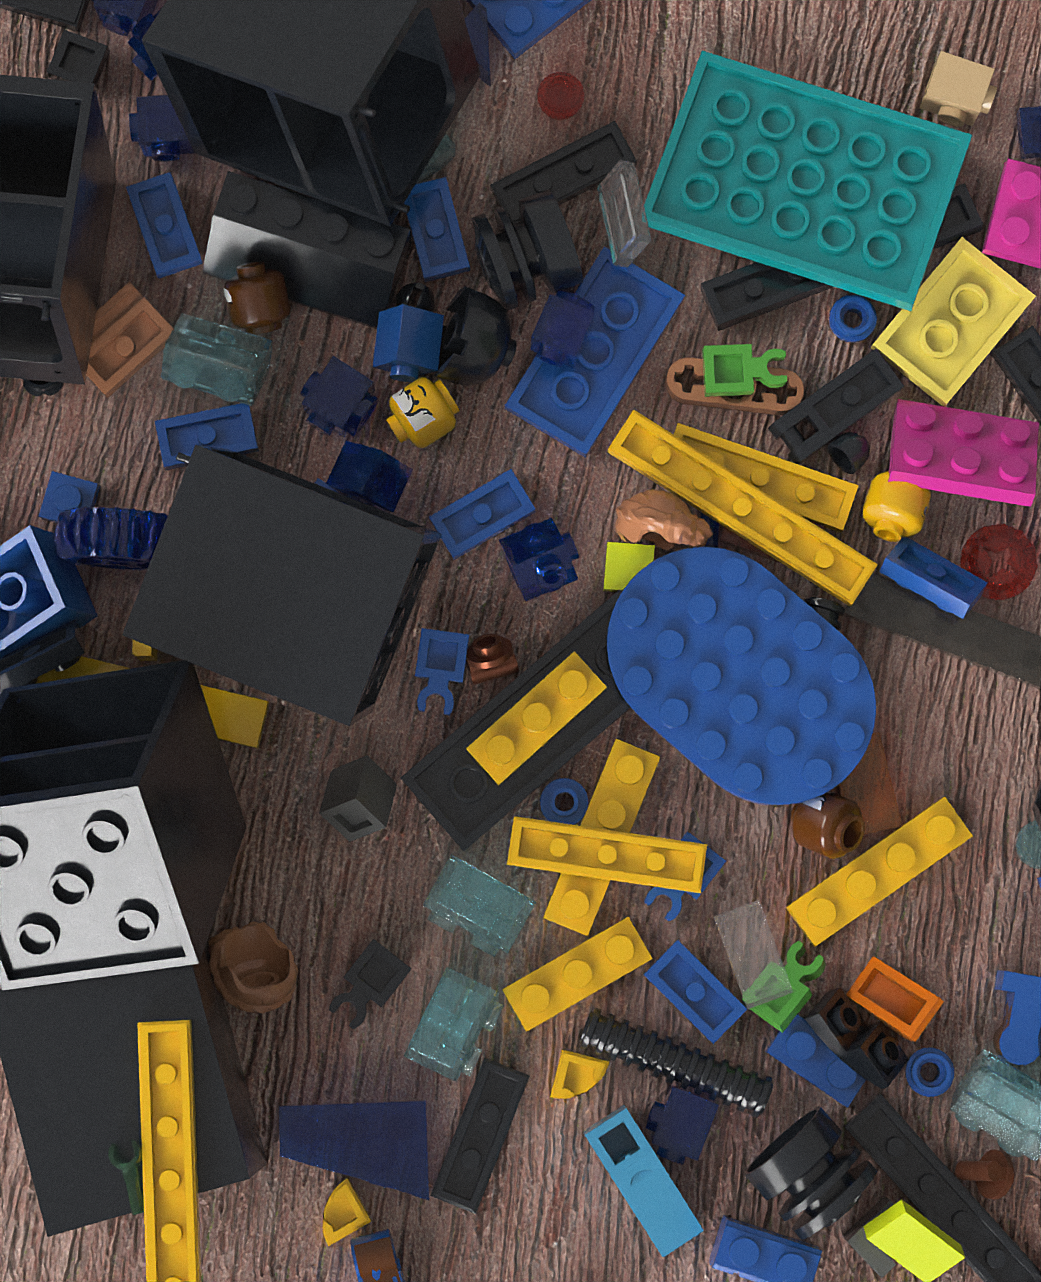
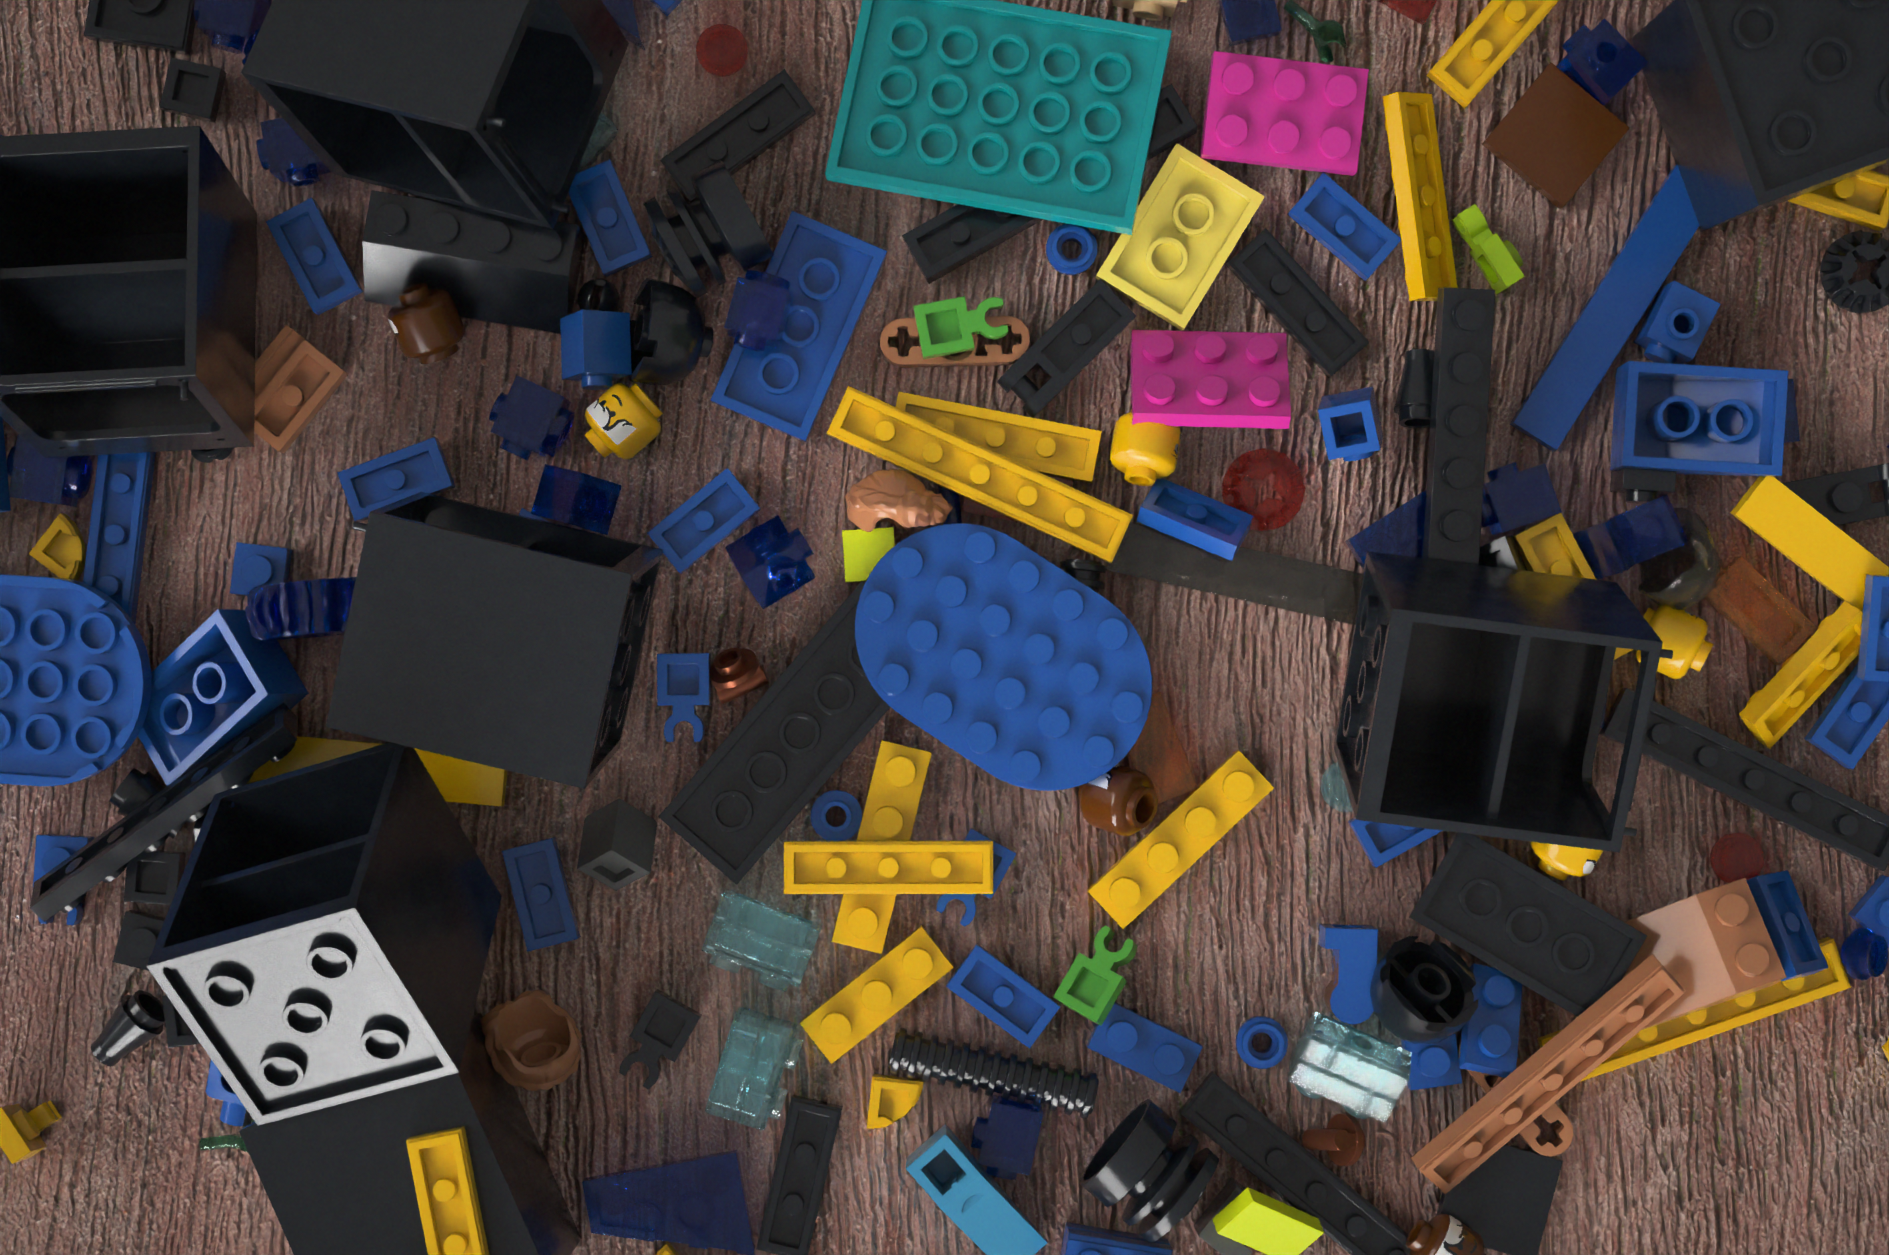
camera: 10 degrees left, 5 degrees up
(216, 359) = (392, 397): clear light blue brick -> none
(281, 833) = (541, 894): none -> blue plate
(536, 718) = (792, 733): yellow plate -> none
(623, 213) = (807, 172): clear tile -> none
(753, 954) = (1059, 948): clear tile -> none
(849, 451) = (1088, 394): black hinge -> none
(864, 1048) = (1187, 1028): black slope -> none
(894, 999) = (1214, 973): orange slope -> none

